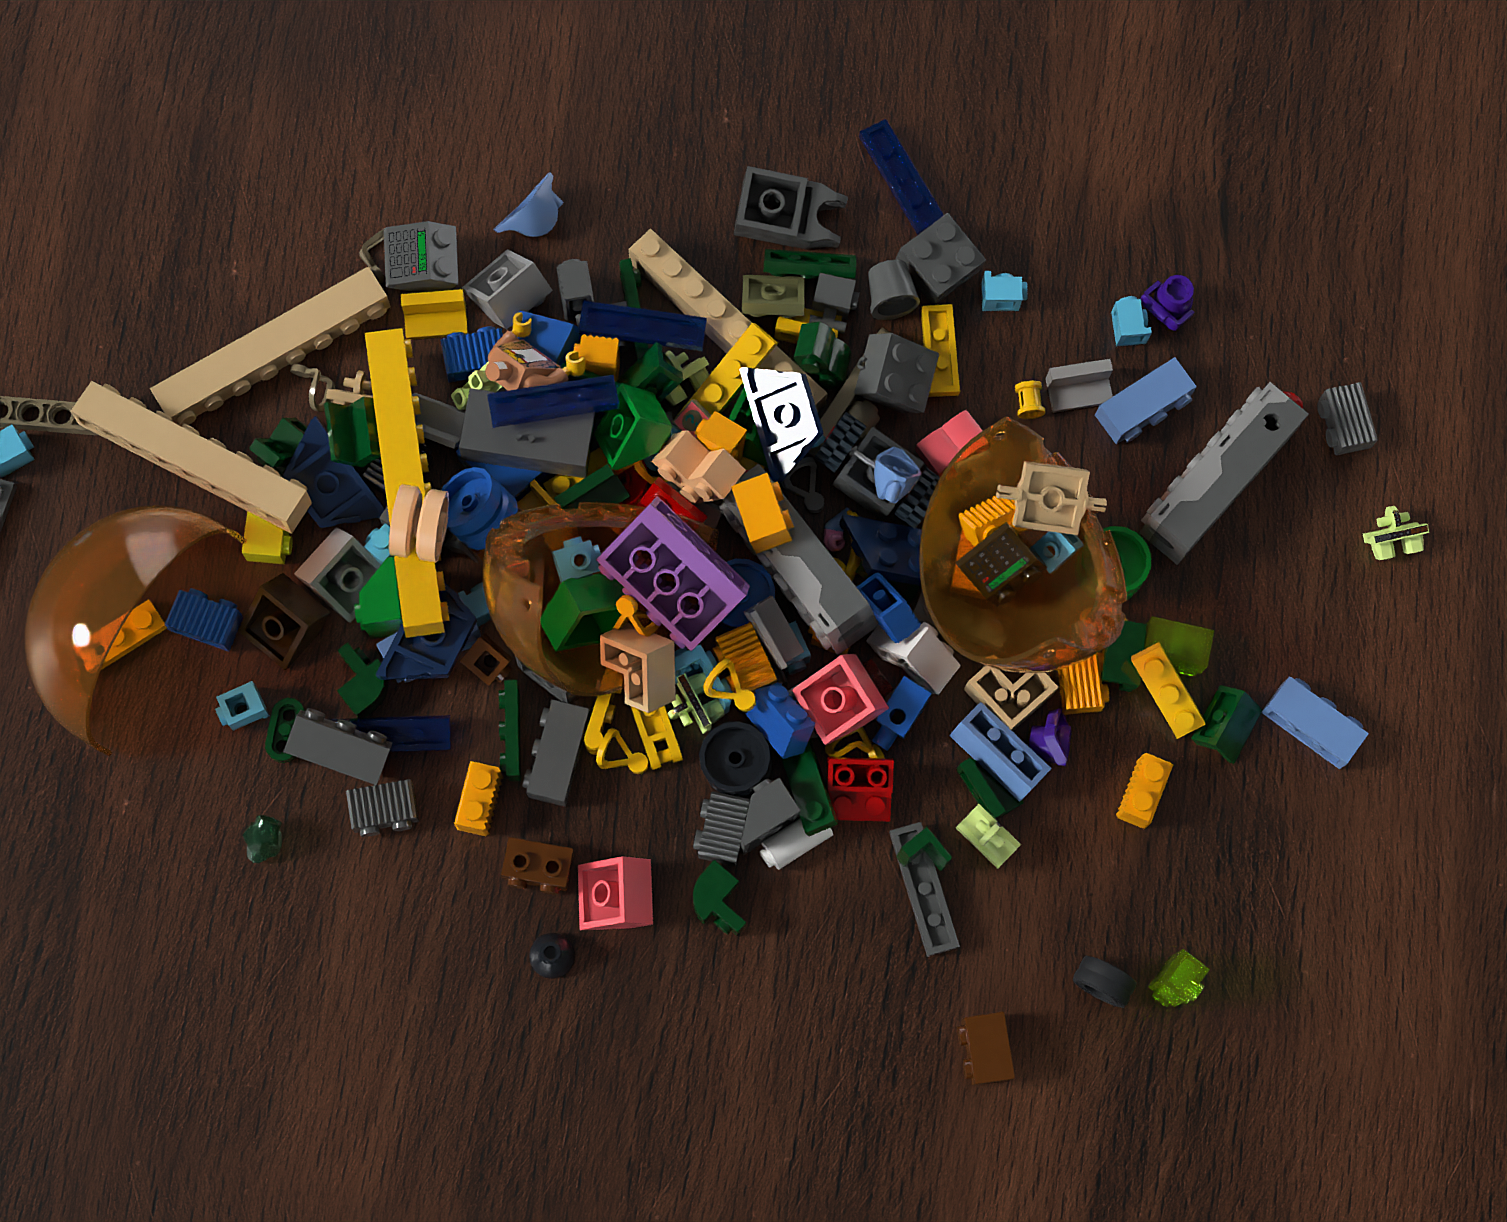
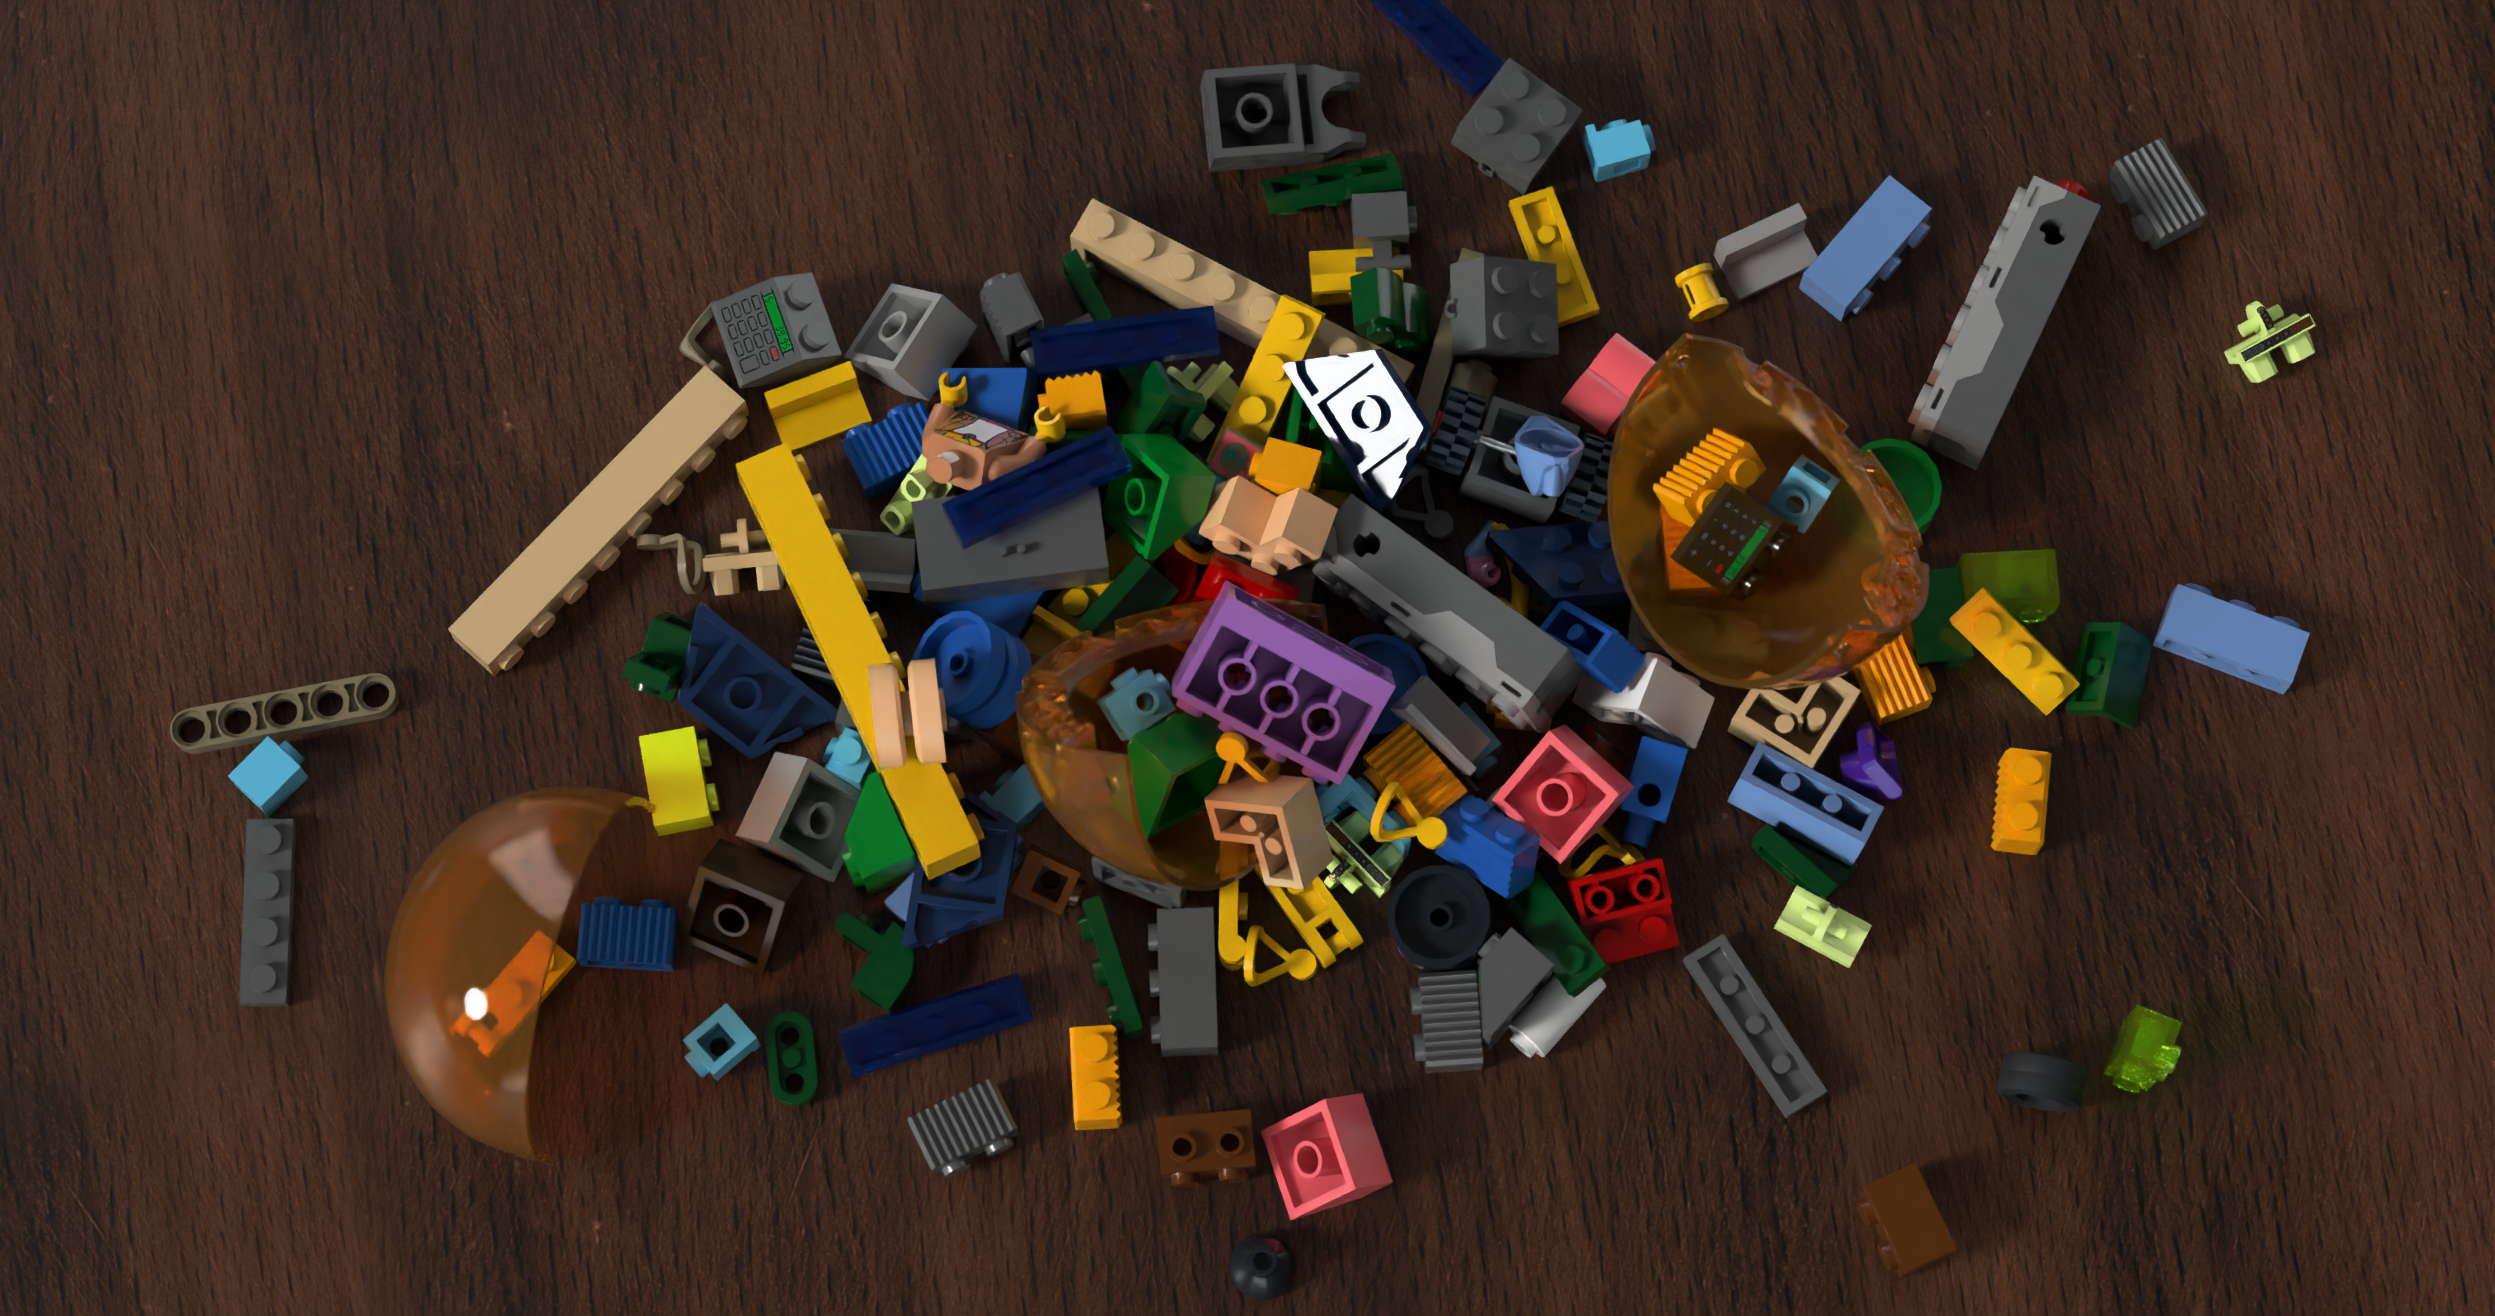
camera: 10 degrees left, 0 degrees up
(192, 456) = (541, 708): tan brick -> none
(263, 838) = (809, 1220): clear green rock -> none
(338, 746) = (878, 1059): dark grey brick -> none
(352, 432) = (761, 610): dark green panel -> none
(536, 213) = (917, 220): medium blue hat -> none
(709, 896) = (1460, 1126): dark green brick -> none
(762, 513) = (1379, 563): light orange brick -> none
(773, 295) = (1294, 245): olive plate -> none
(891, 290) = (1460, 190): dark grey hat -> none
(927, 843) = (1748, 962): dark green panel -> none
(1051, 498) = (1778, 429): tan plate -> none
(1130, 322) = (1811, 141): medium azure brick -> none
(1170, 301) = (1859, 95): dark purple piece -> none

